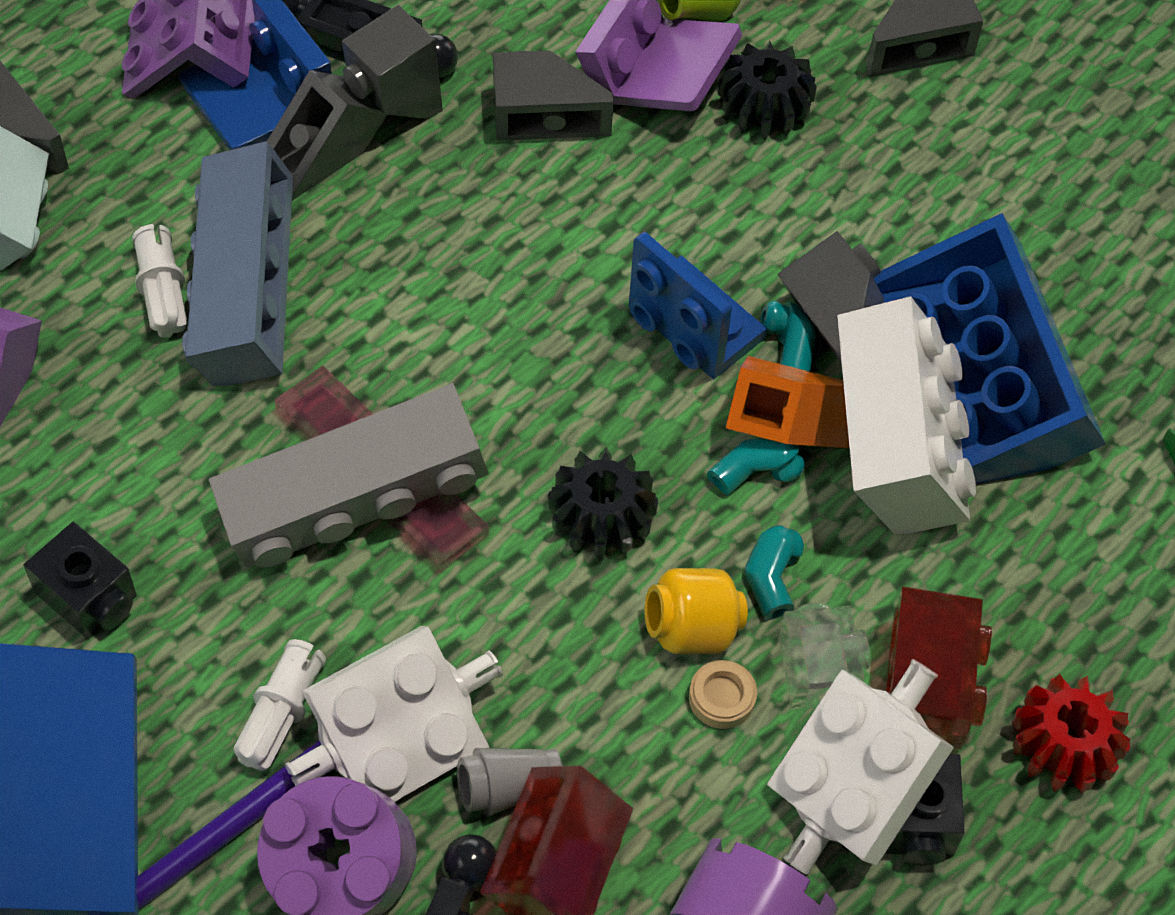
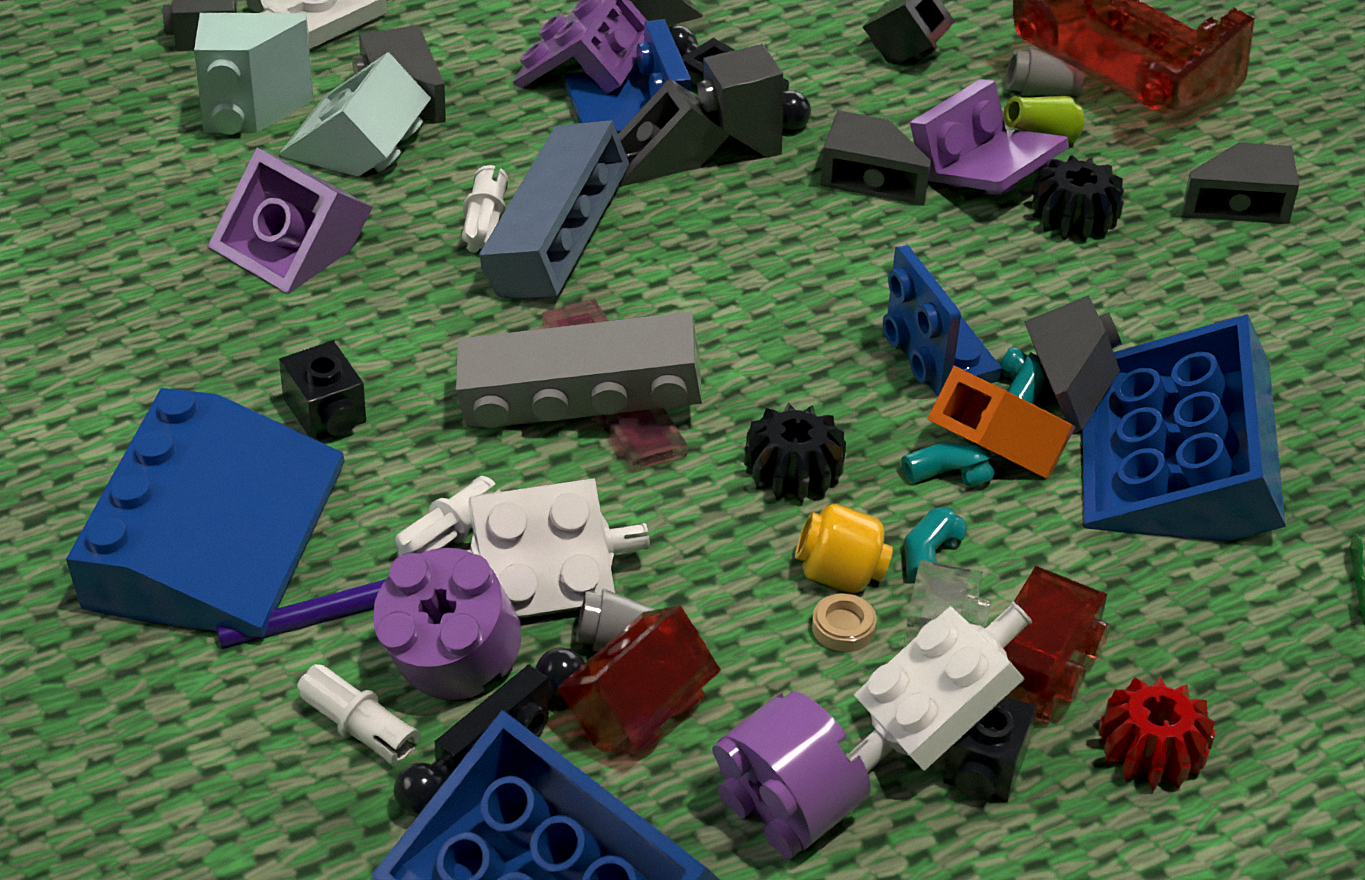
camera: 20 degrees right, 15 degrees down
(905, 417) = (1091, 444): white brick -> none

